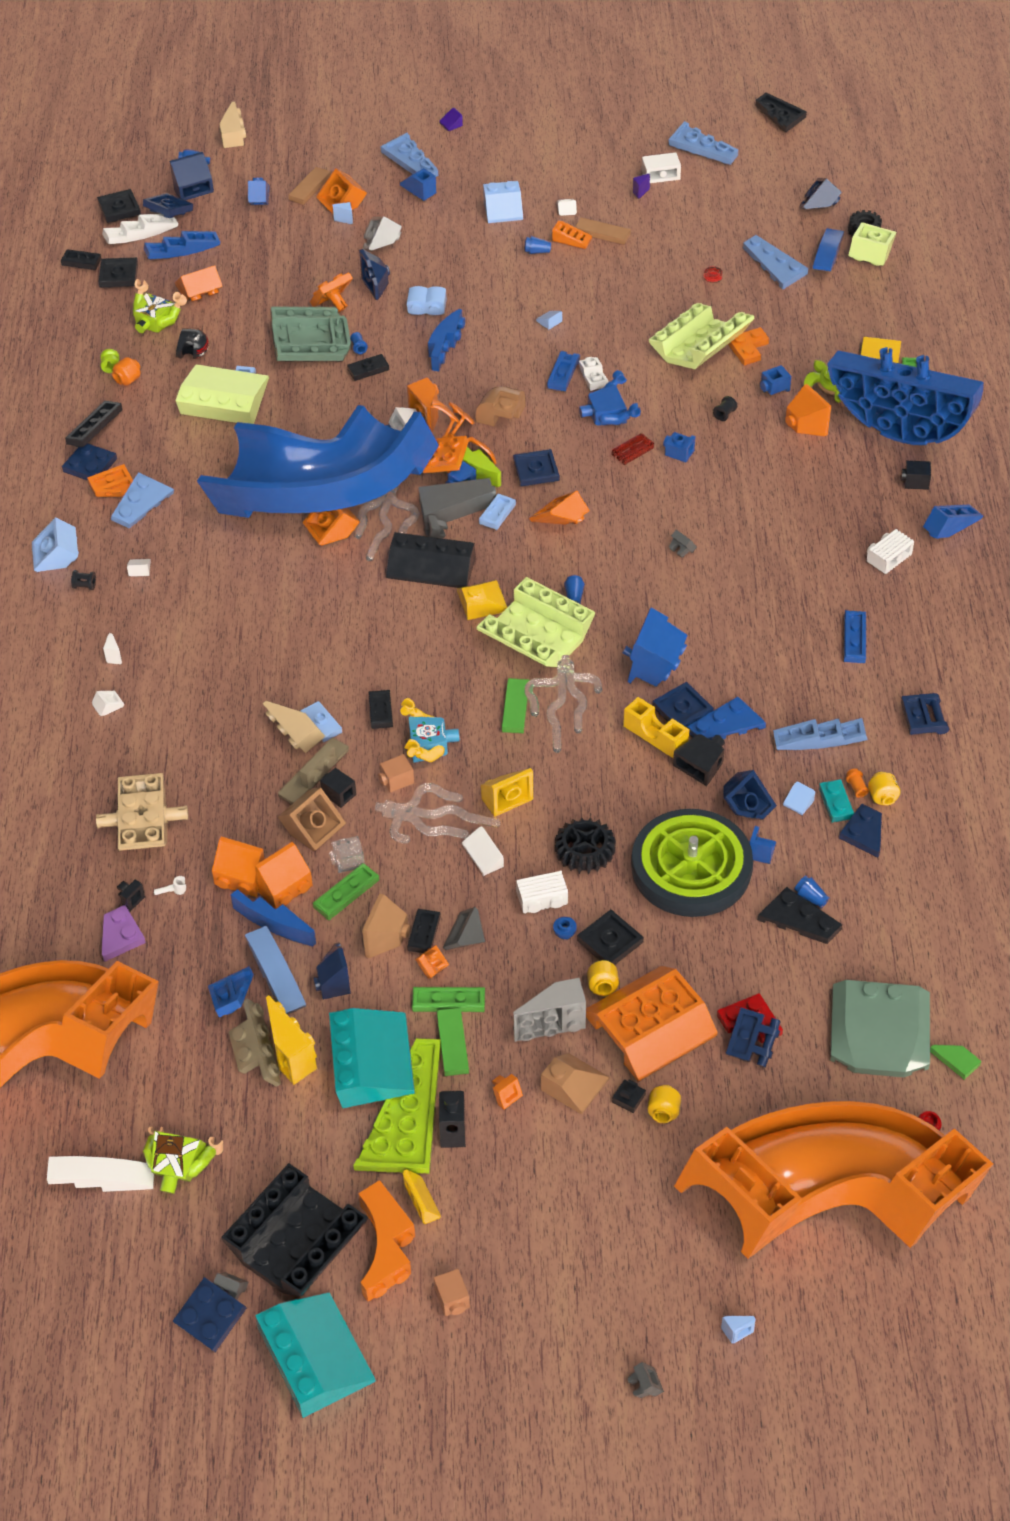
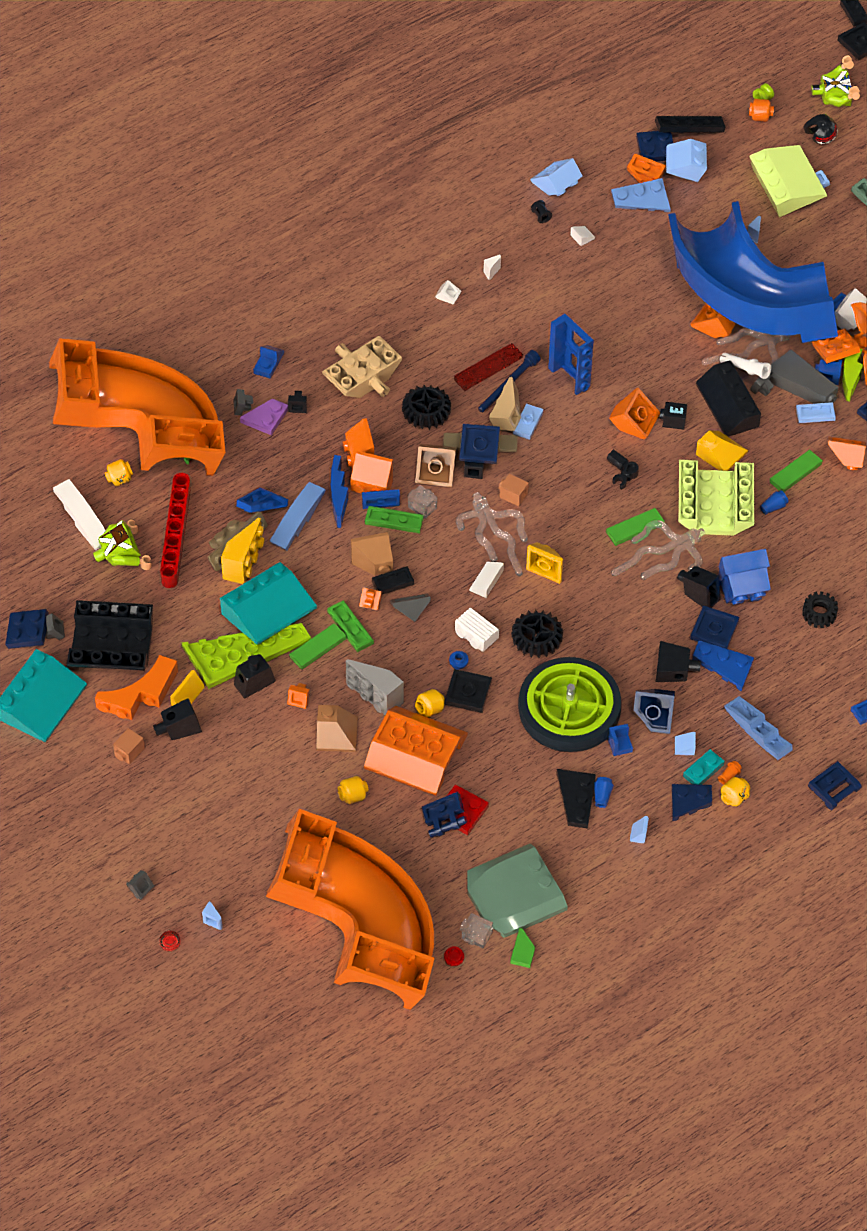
camera: 55 degrees right, 5 degrees up
(51, 893) = (268, 361): none -> blue slope
(75, 1106) = (118, 472): none -> yellow head
(84, 943) = (242, 402): none -> dark grey tile
(133, 445) = (687, 159): none -> light blue slope
(178, 886) = (324, 423): white hand -> none
(203, 1101) = (175, 530): none -> red beam
(227, 718) = (488, 366): none -> clear red plate
(232, 784) = (418, 400): none -> black gear
(251, 679) = (531, 359): none -> dark blue piece
(276, 631) = (561, 350): none -> blue window
(315, 887) = (381, 498): none -> blue tile
(330, 763) = (479, 443): none -> dark blue plate
(332, 974) = (319, 548): dark blue slope -> none
(380, 709) = (565, 449): black plate -> none
(388, 636) = (635, 414): none -> orange slope
(415, 608) = (674, 415): none -> black brick
(416, 520) = (751, 366): none -> white pin
(427, 734) = (559, 489): torso -> none
(446, 674) = (628, 469): none -> black bar
(459, 1221) = (178, 721): none -> black torso
(549, 559) = (796, 471): none -> bright green tile
(629, 686) = (701, 586): none -> black torso
(629, 1095) = (348, 768): black tile -> none
(642, 721) = (676, 617): yellow arch -> none
(723, 613) = (820, 618): none -> black tyre
(738, 1390) = (170, 941): none -> clear red tile
(877, 886) = (639, 830): none -> light blue slope
(912, 1085) = (476, 930): none -> clear brick

